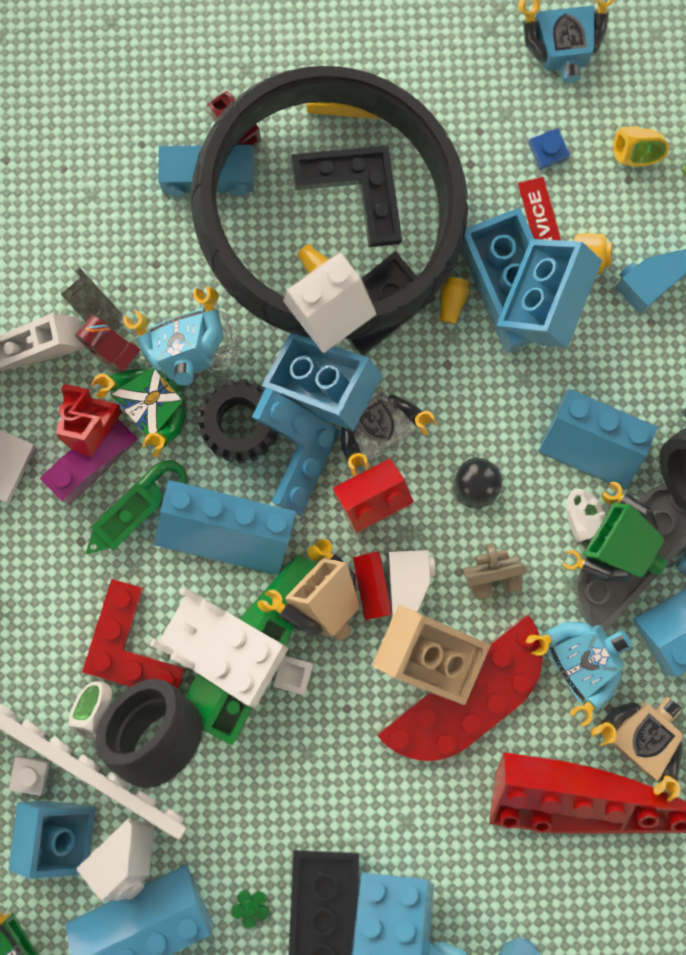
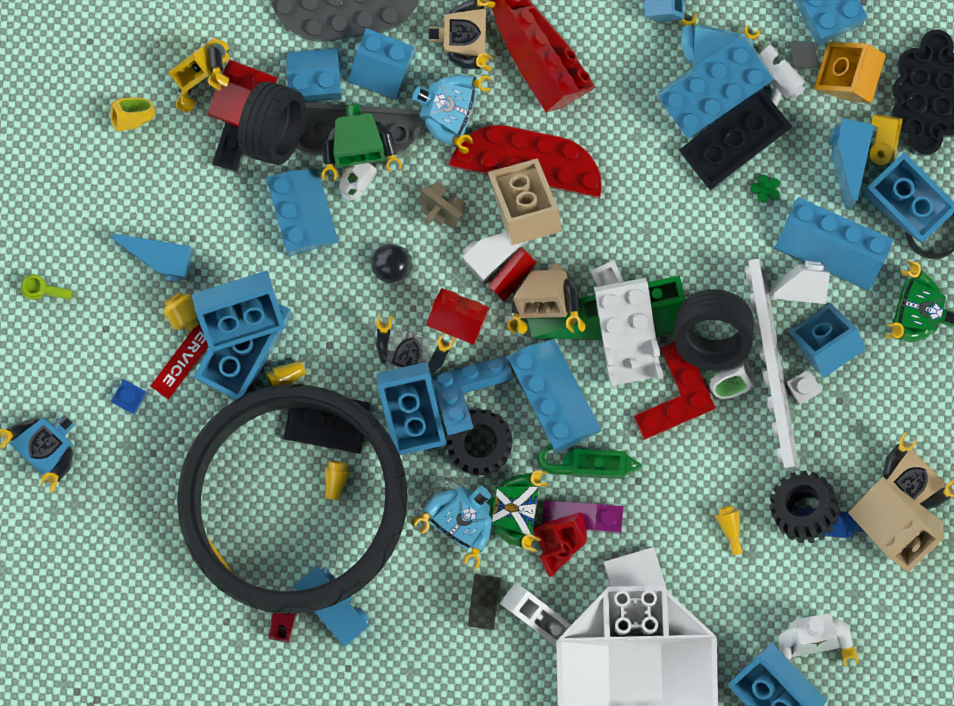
camera: 125 degrees left, 0 degrees up
(107, 344) = (501, 565): dark red leg -> none
(330, 302) = (364, 434): white slope -> none
(357, 166) = (256, 482): black plate -> none
(639, 146) = (81, 337): yellow rock -> none

